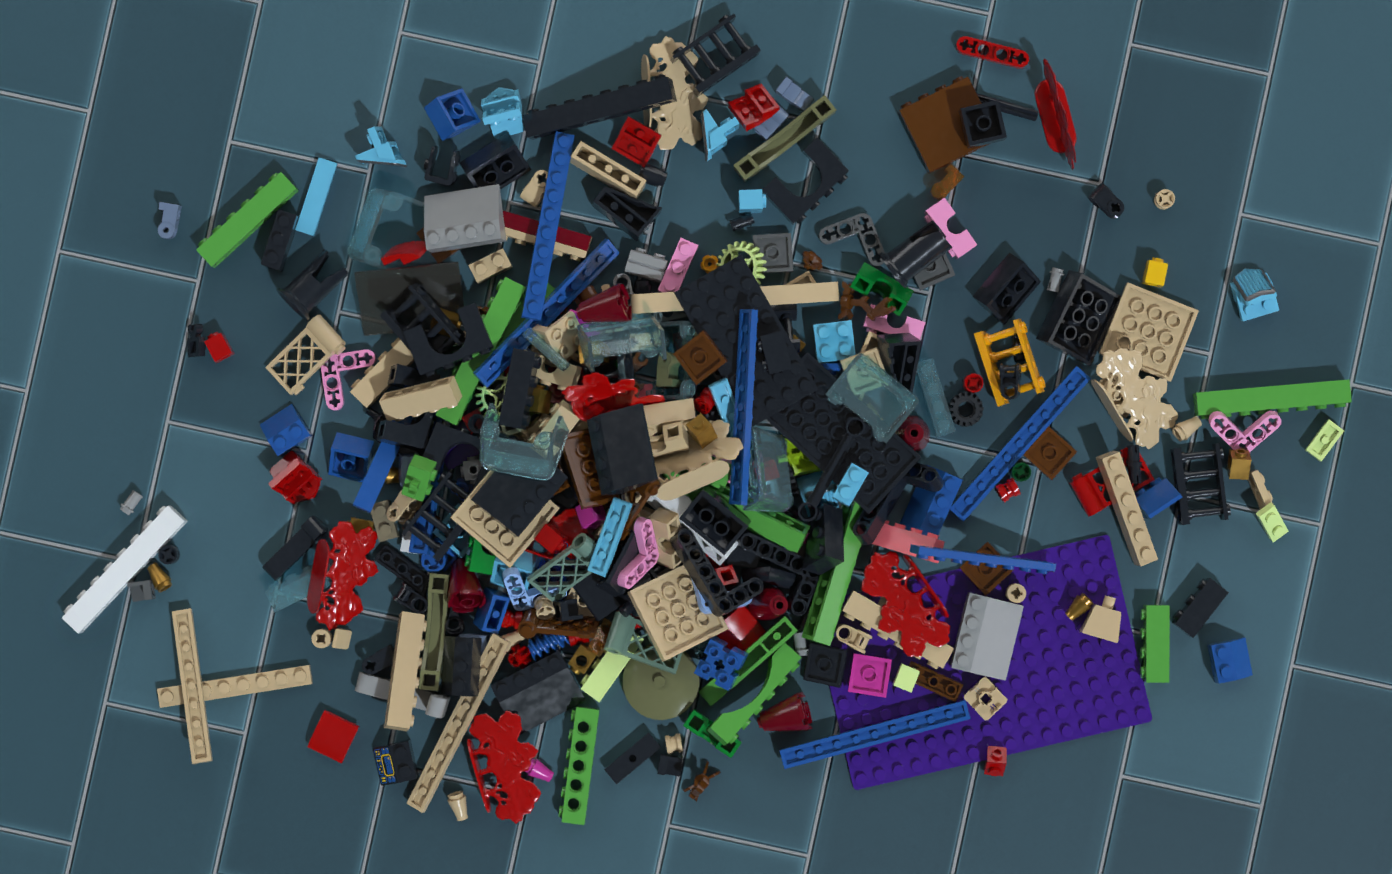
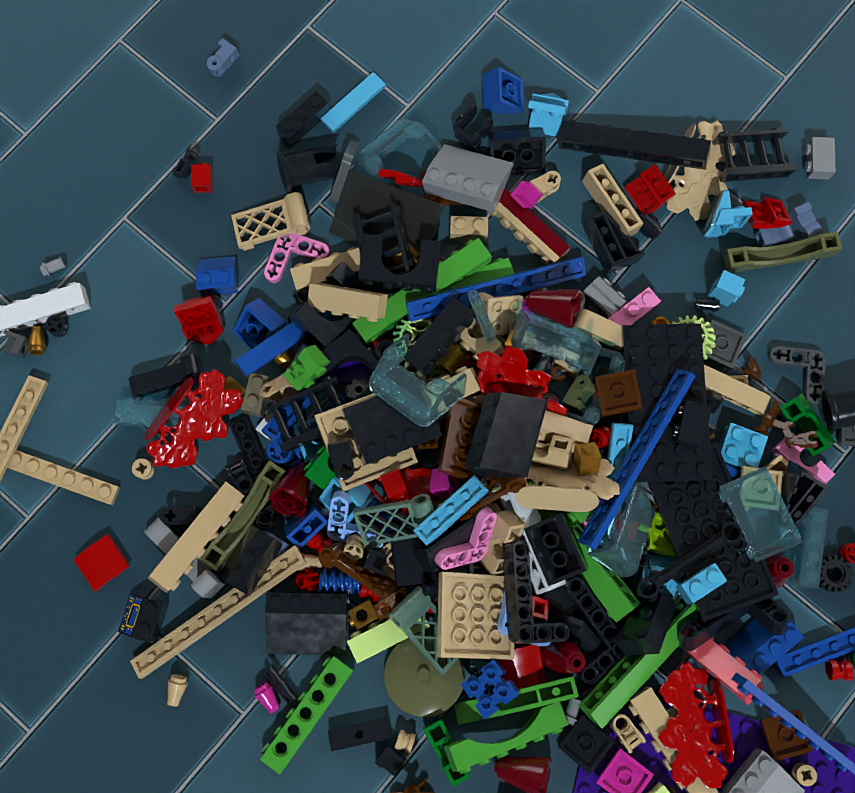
camera: 30 degrees right, 10 degrees down
(247, 219) = (285, 89): bright green brick -> none
(341, 638) = (160, 478): tan slope -> none
(348, 271) = (343, 171): none -> dark grey beam
(383, 151) = (427, 90): medium azure piece -> none
(491, 540) = (341, 456): none -> black piece
(507, 761) = (241, 672): red plant -> none
(526, 207) = (527, 194): none -> dark pink panel
(545, 754) = (280, 684): none -> black pin
(547, 226) = (536, 218): blue plate -> none
(777, 23) = (820, 158): none -> light grey brick
(831, 173) = (808, 301): black arch -> none

